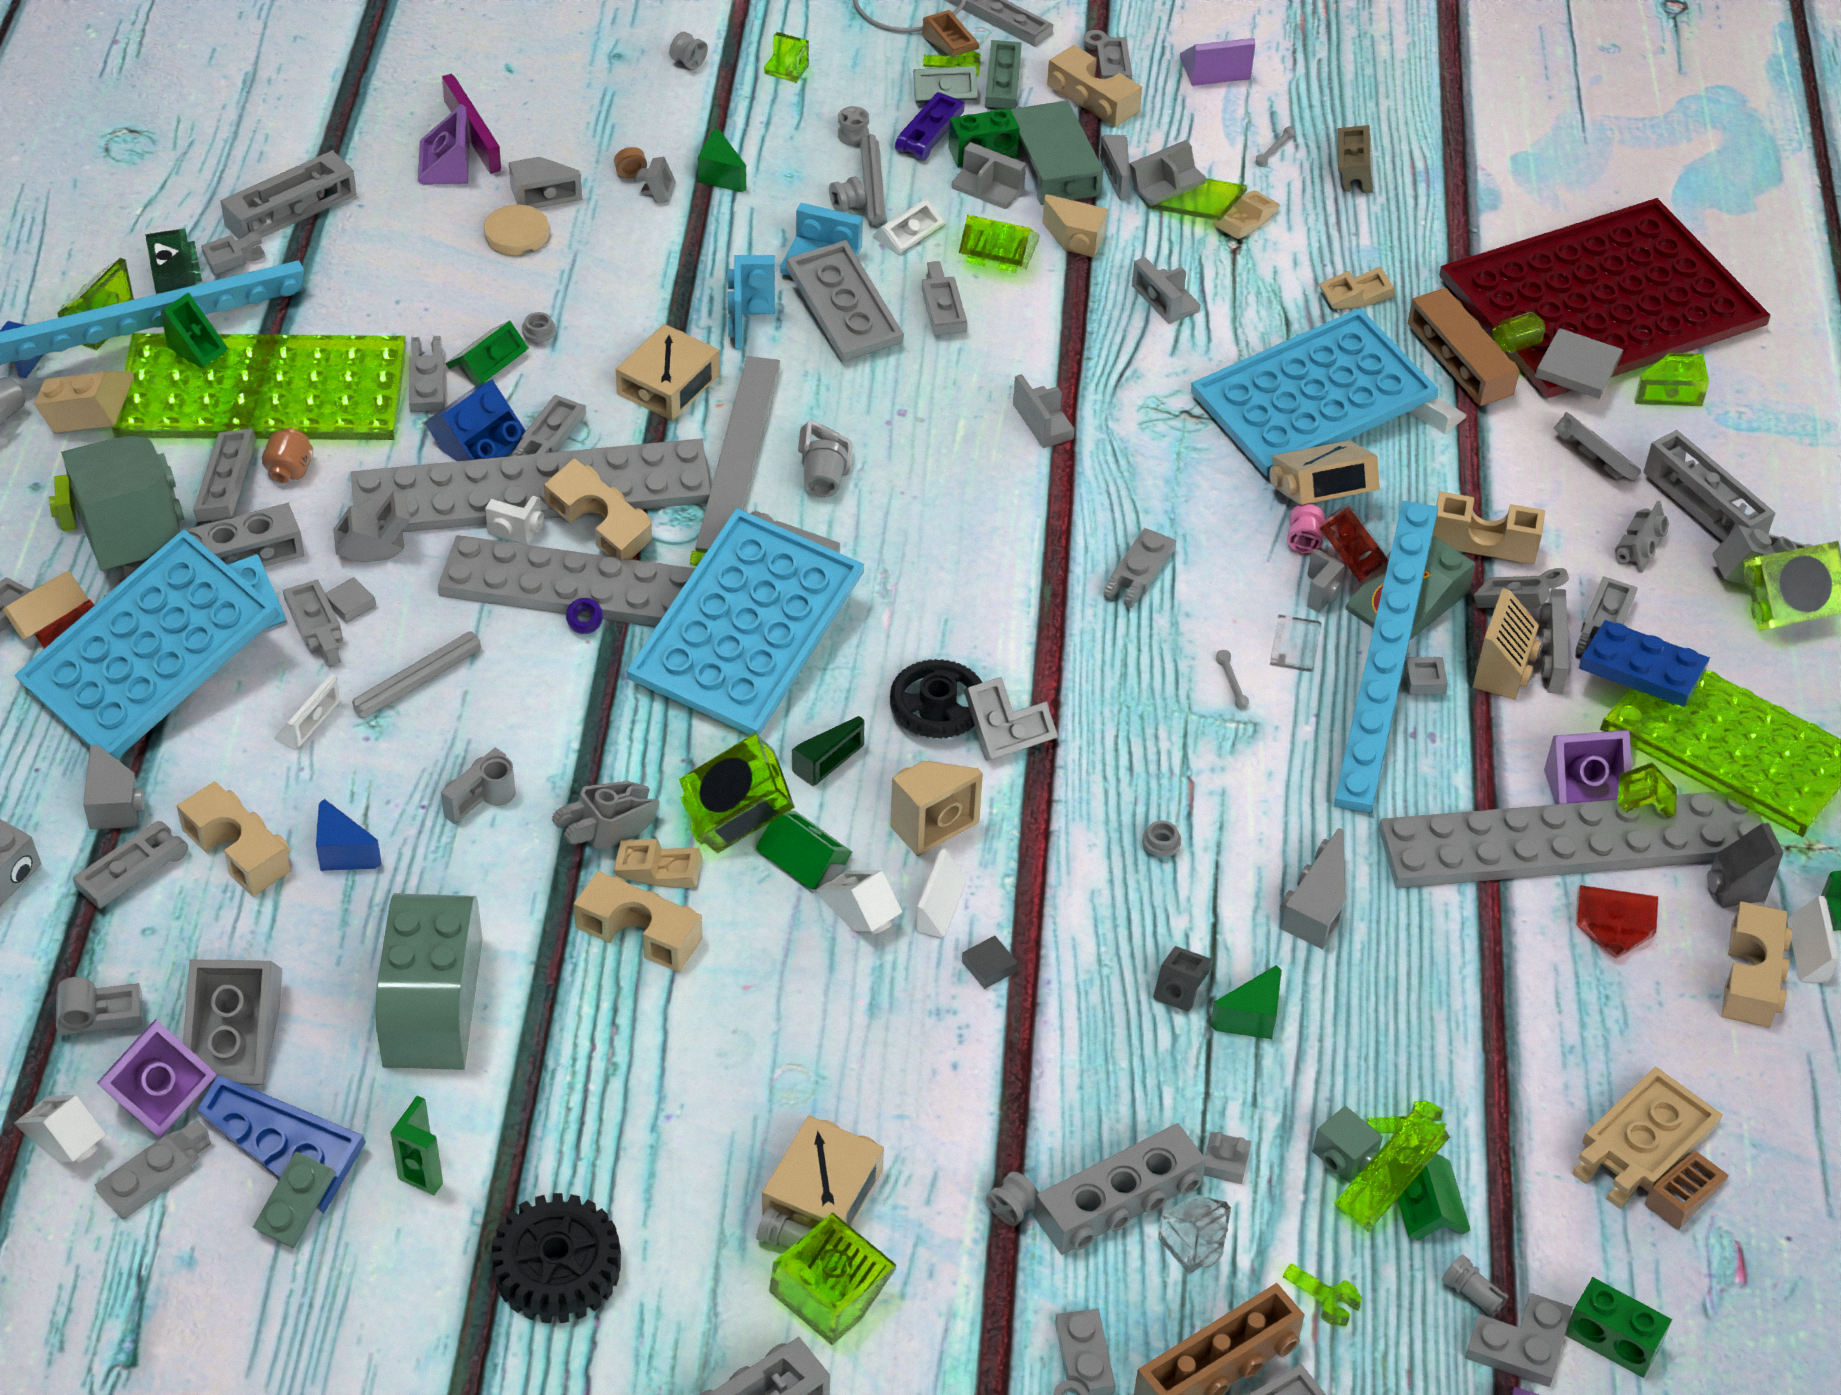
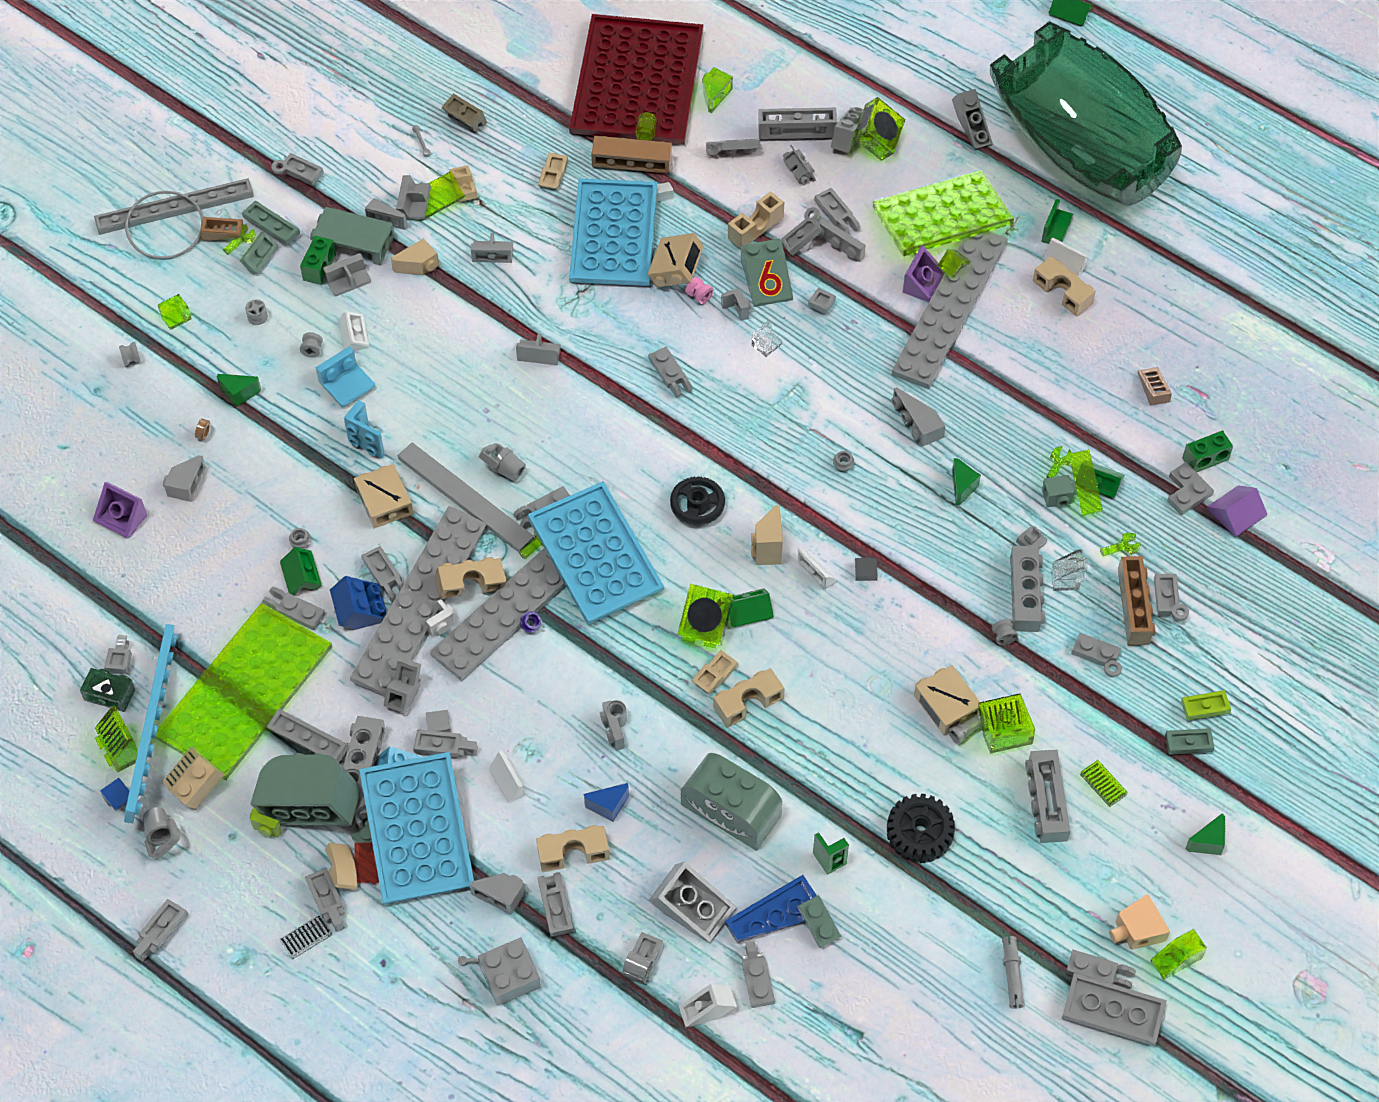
camera: 55 degrees left, 10 degrees up
(157, 1078) = (713, 947): medium lavender slope -> none
(190, 332) = (190, 702): green slope -> none
(287, 455) = (311, 701): nougat head -> none
(289, 196) = (98, 636): light grey brick -> none
(416, 674) = (514, 716): light grey axle -> none
(479, 134) = (94, 486): magenta tile -> none
(516, 229) = (209, 510): tan tile -> none
(607, 814) = (676, 678): light grey hinge -> none
(658, 178) = (226, 425): light grey tile -> none
(827, 751) = (700, 571): dark green slope -> none
(844, 301) = (394, 389): light grey plate -> none
(862, 900) = (798, 599): white slope -> none
(872, 180) = (304, 326): light grey axle -> none
(929, 125) = (284, 277): dark purple plate -> none
(943, 301) = (424, 347): light grey hinge -> none
(998, 242) = (403, 299): clear neon green slope -> none
(1002, 729) = (734, 482): light grey plate -> none
(1109, 99) = (302, 195): tan arch -> none
(1180, 978) = (929, 498): dark grey bracket -> none
(1219, 61) = (340, 124): medium lavender slope -> none
(1223, 658) = (750, 372): light grey hinge -> none
(1353, 539) = (720, 274): clear red torso -> none
(1386, 658) = (806, 306): medium azure plate -> none
(1475, 1286) = (1149, 490): light grey pin -> none
(1507, 648) = (833, 261): tan slope -> none
(1579, 363) = (680, 117): light grey tile -> none
(1616, 918) = (1004, 319): clear red slope -> none
(1644, 663) = (882, 214): blue plate -> none
(1646, 1135) = (1120, 382): tan tile -> none
(1746, 868) = (1017, 254): flat silver slope -> none

